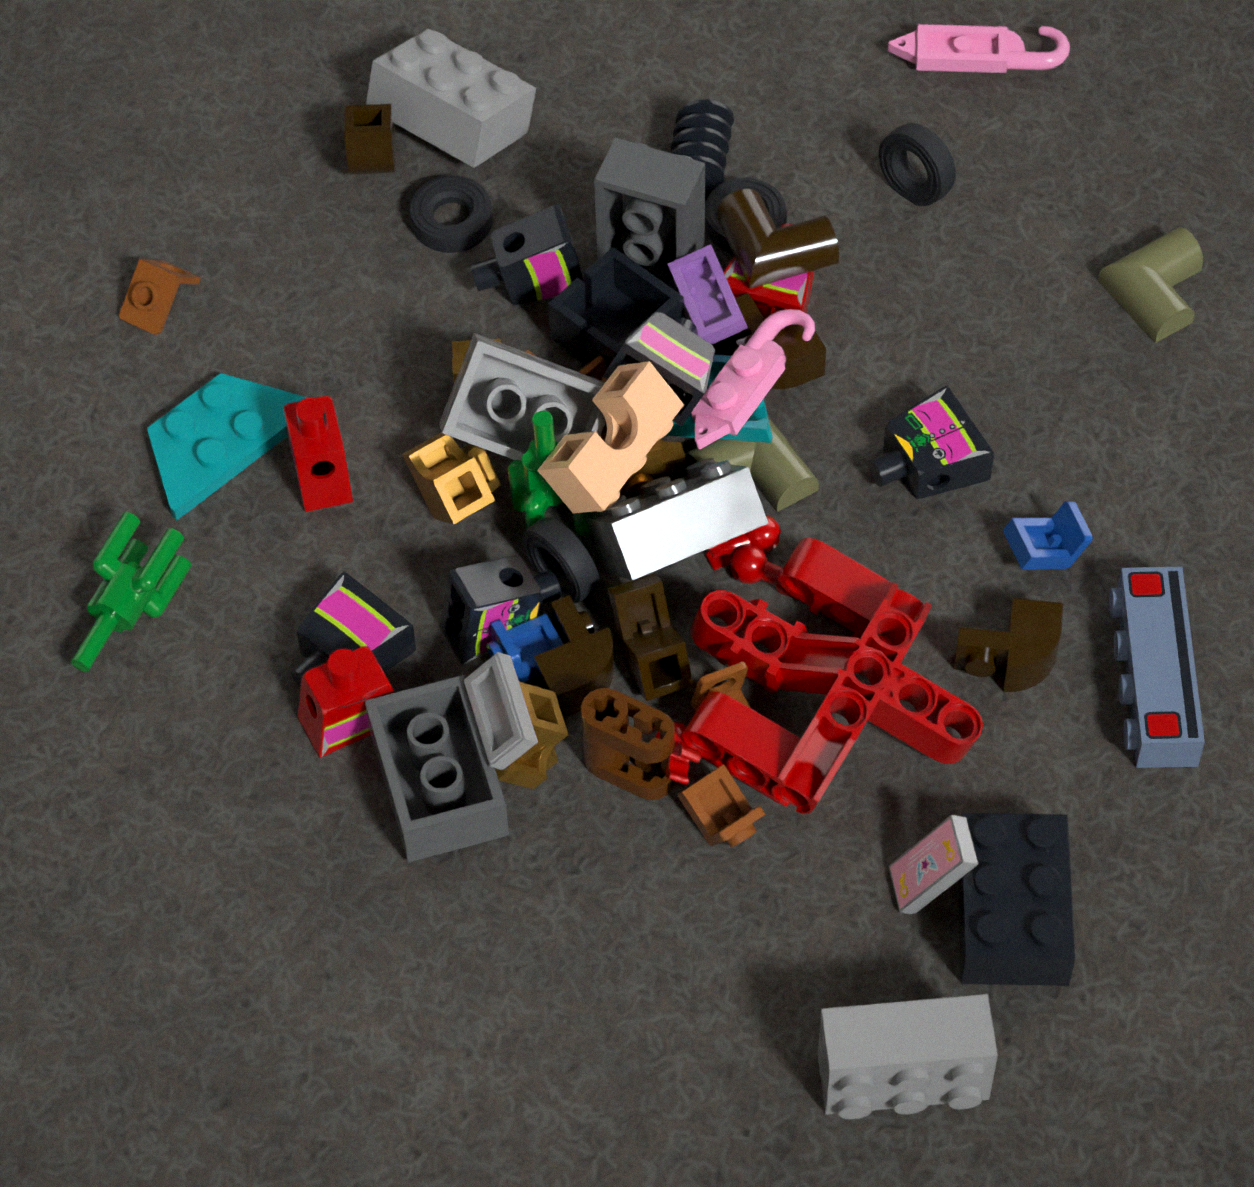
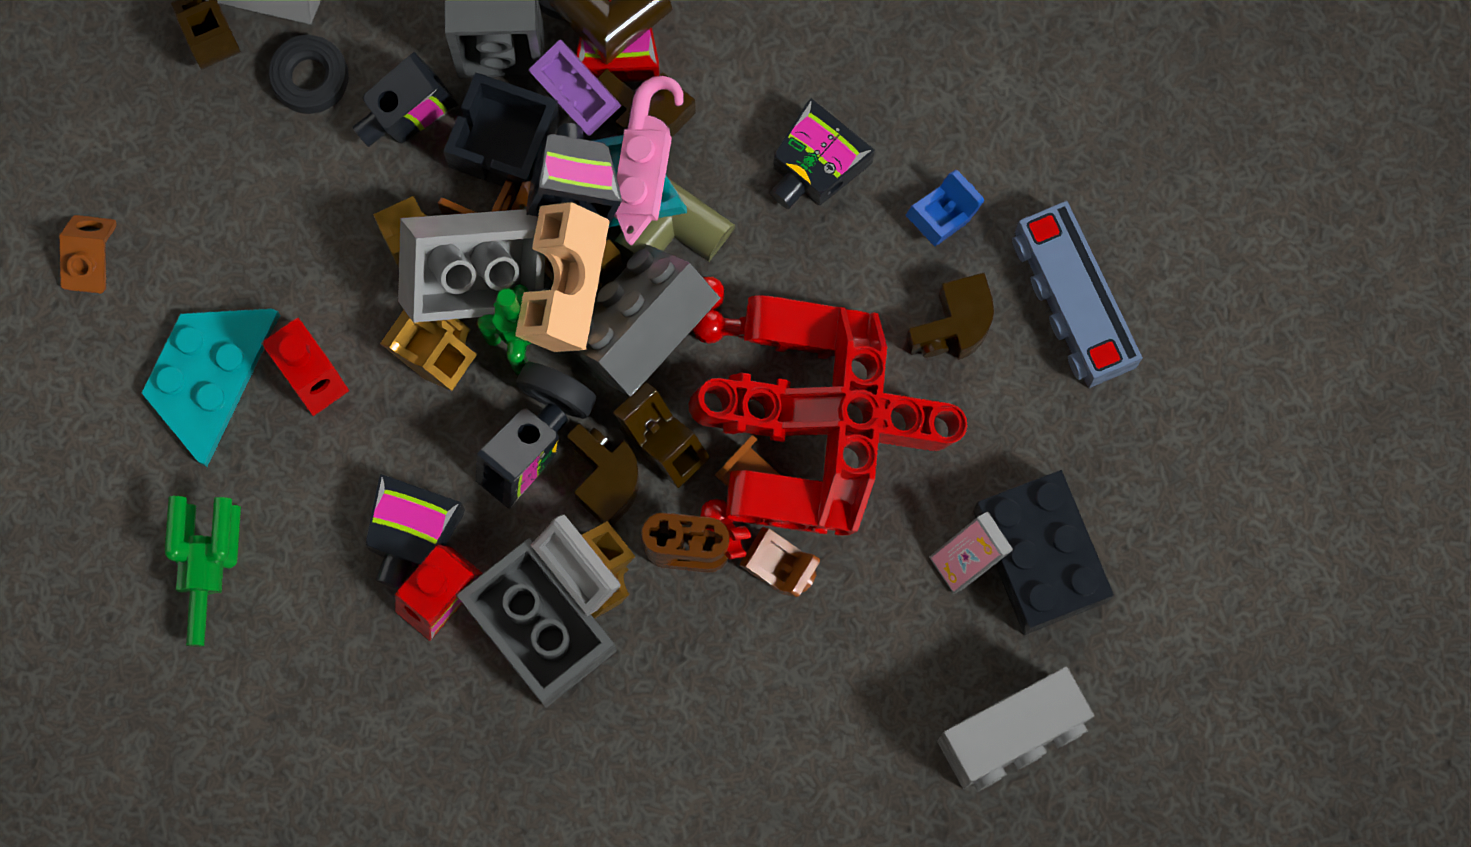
camera: 25 degrees left, 20 degrees up
(523, 643) = (558, 479): blue bracket -> none

